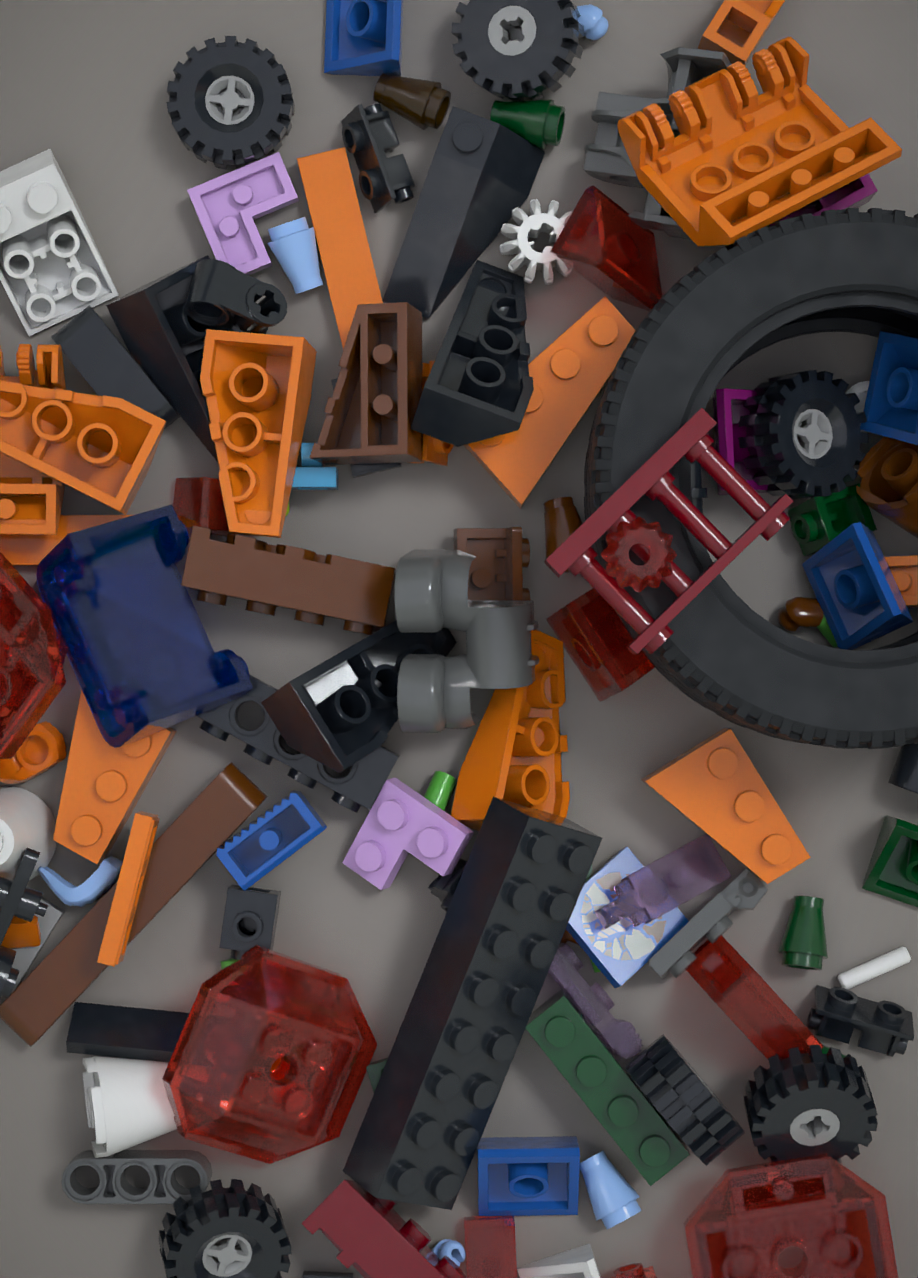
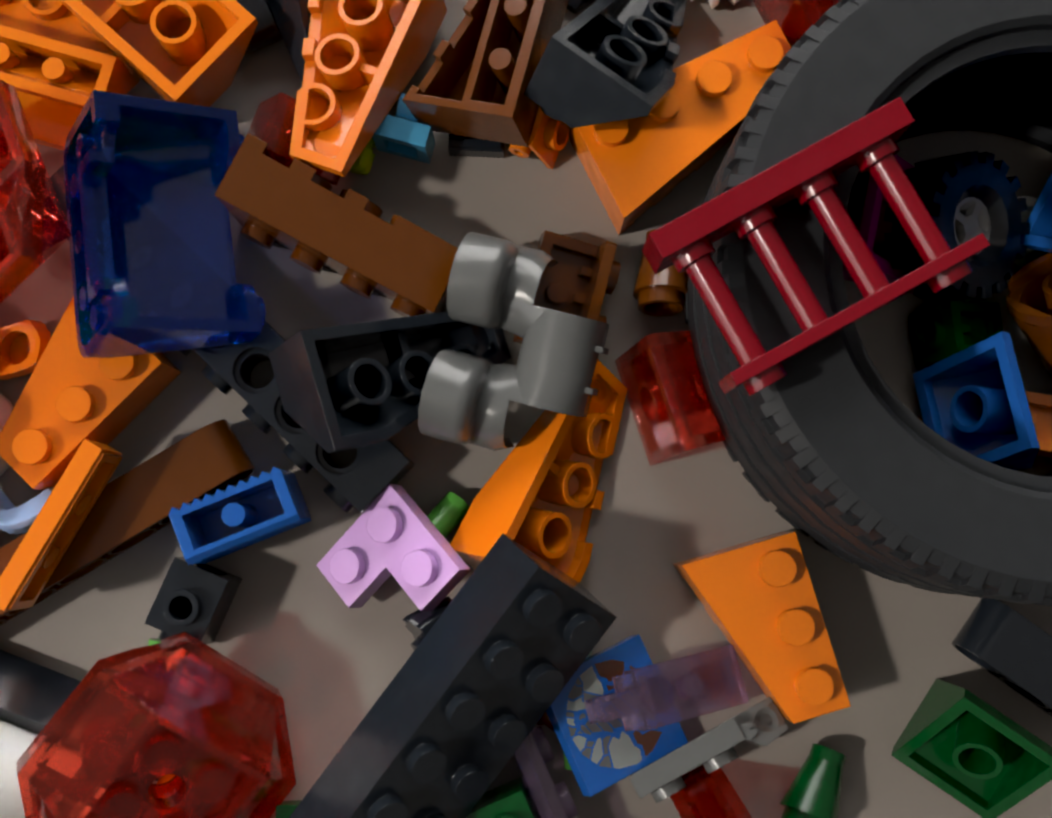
camera: 15 degrees right, 5 degrees down
(657, 544) = (757, 278): clear red piece -> none

